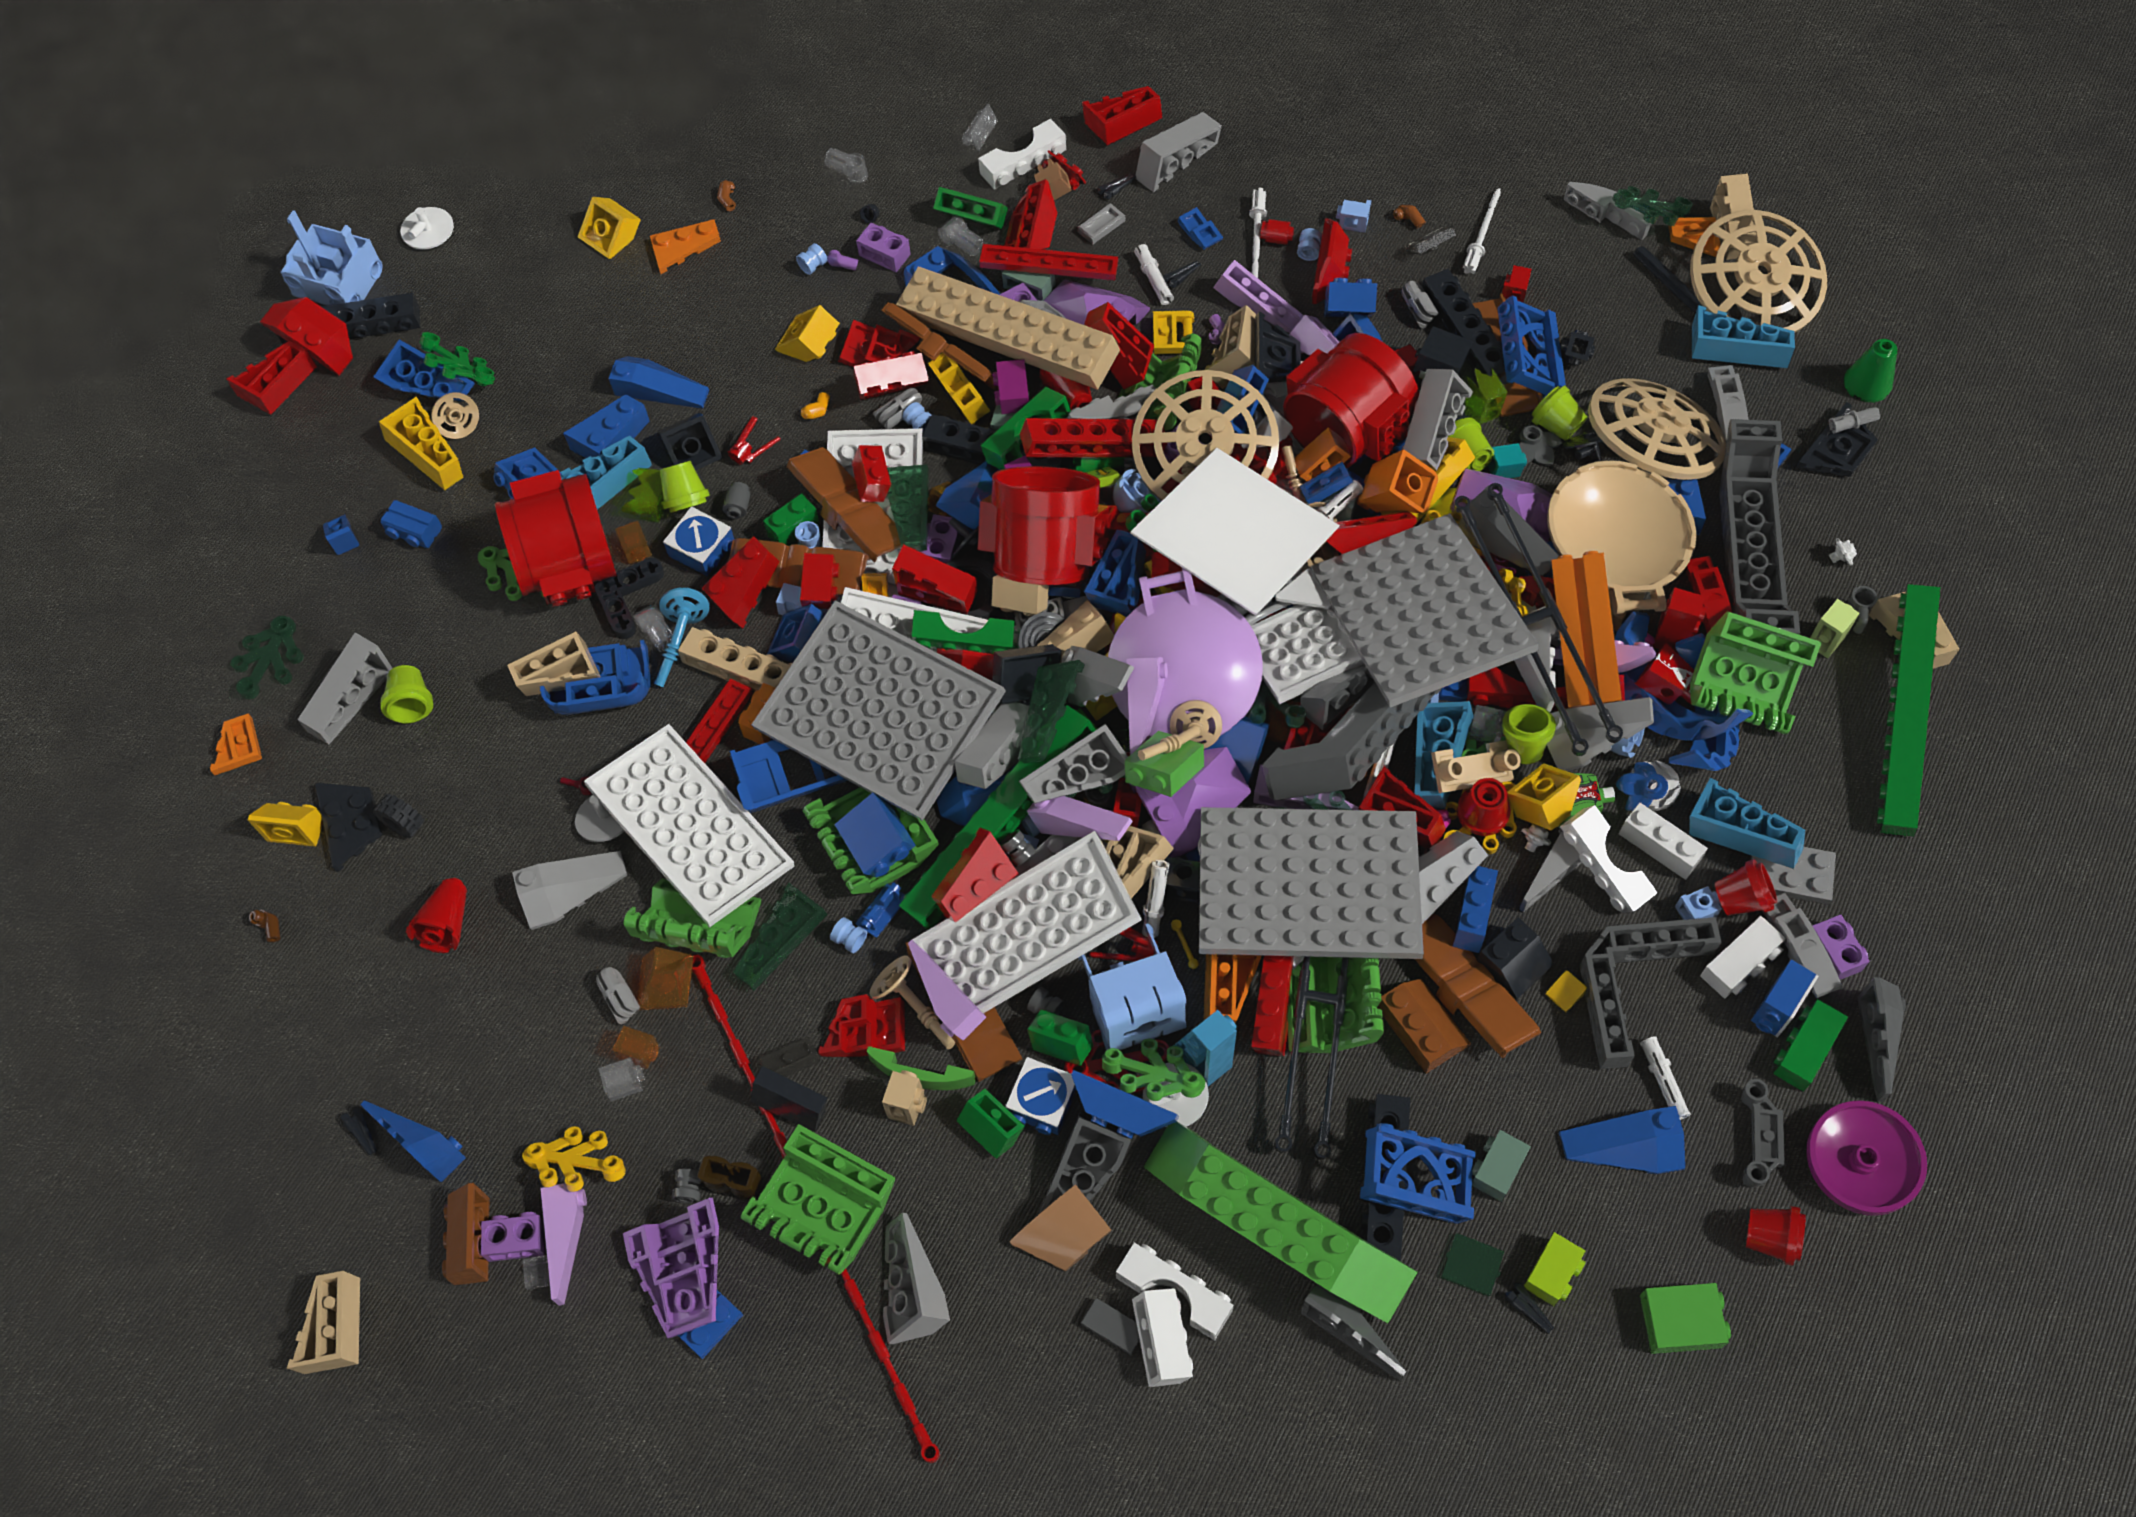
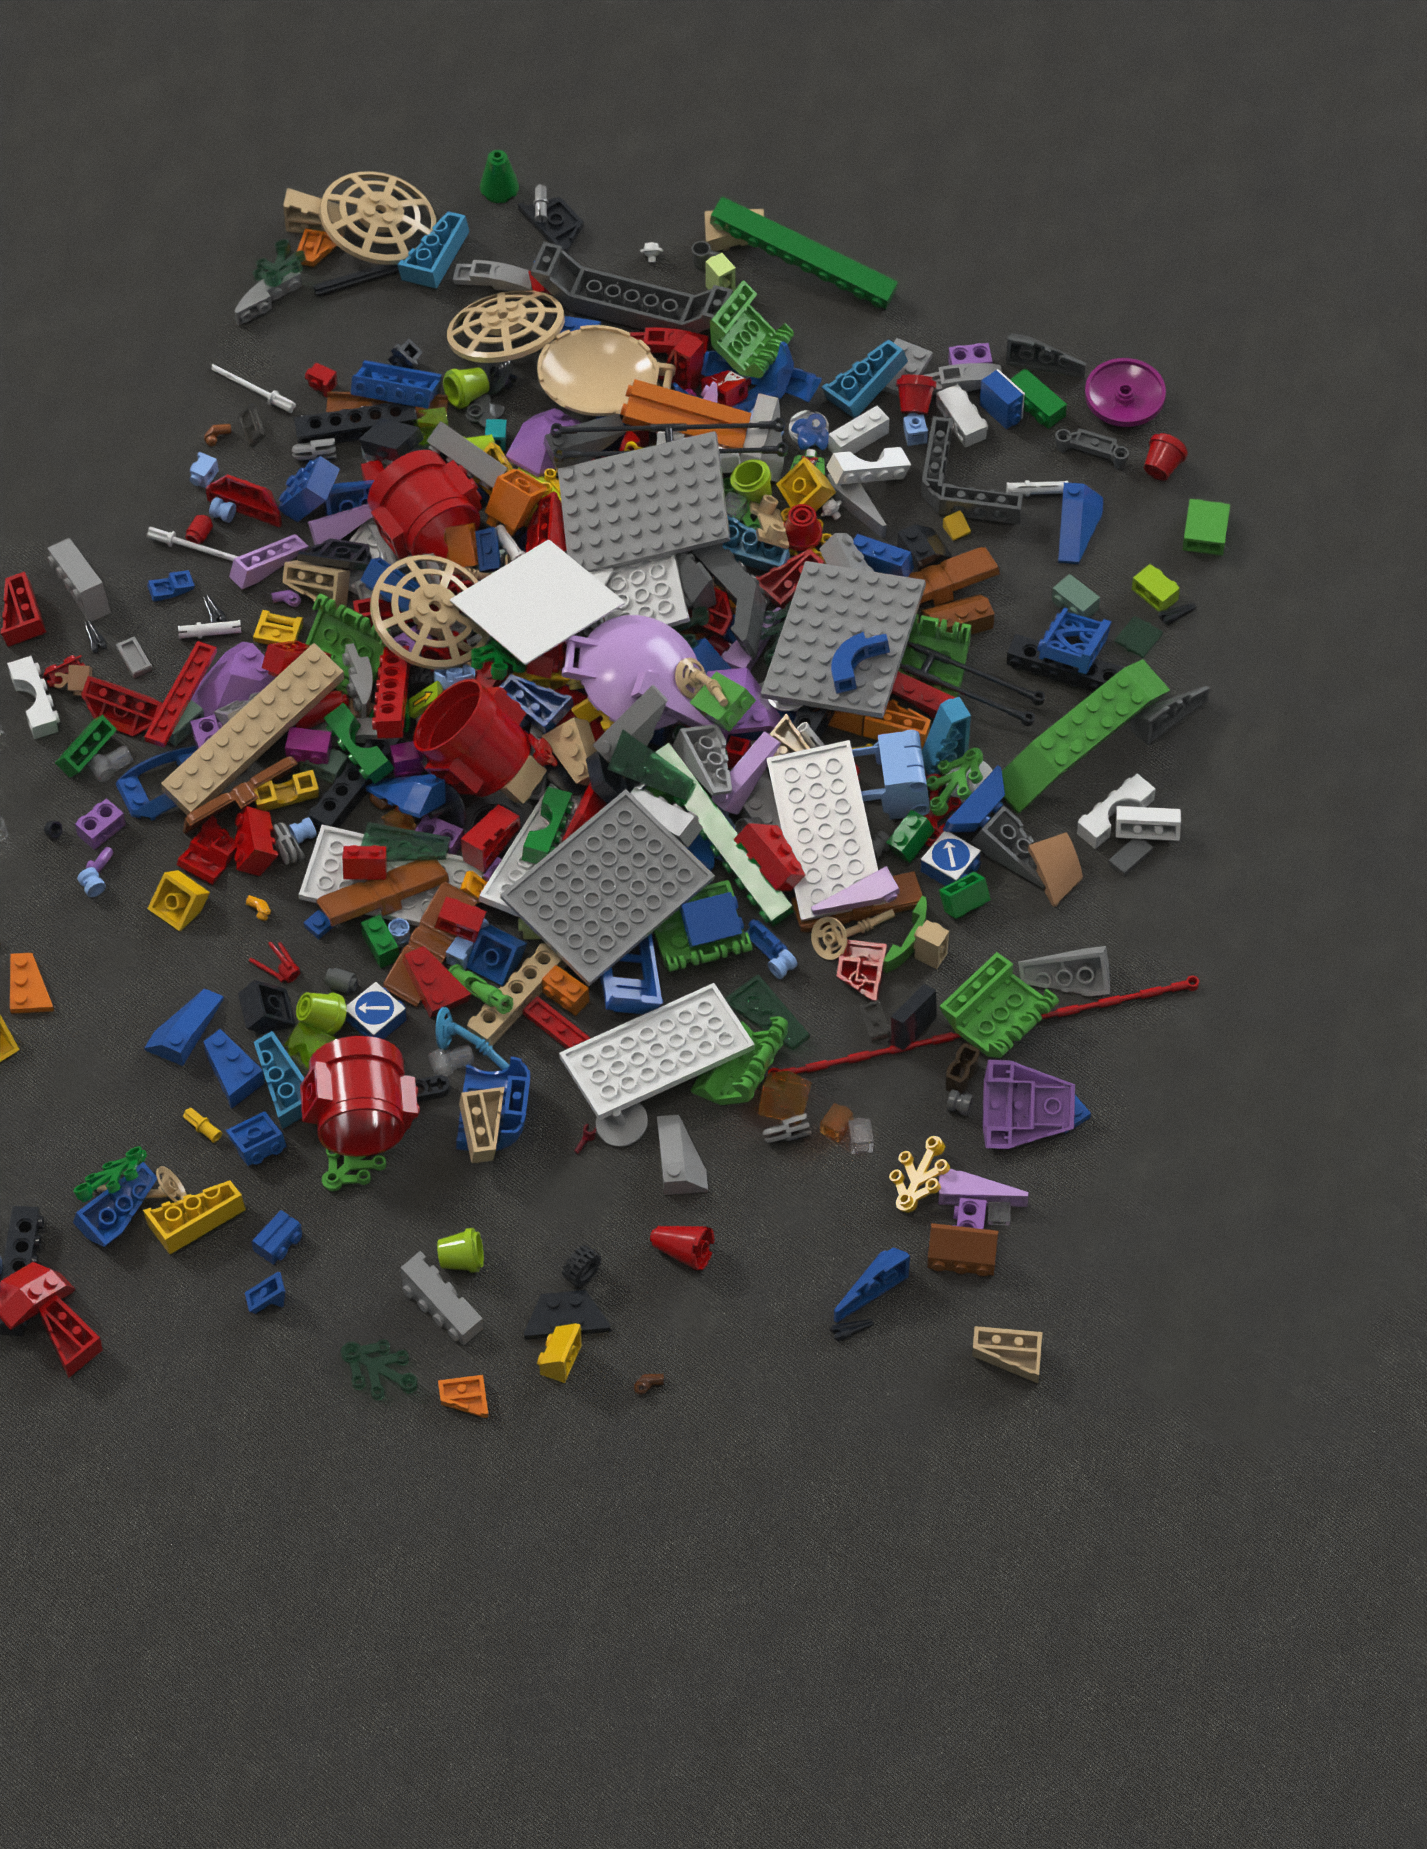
camera: 80 degrees left, 5 degrees down
(540, 427) = (202, 1125): none -> yellow axle
(737, 626) = (481, 989): none -> bright green piece
(1059, 601) = (543, 751): none -> red plate
(1265, 885) = (851, 654): none -> blue arch

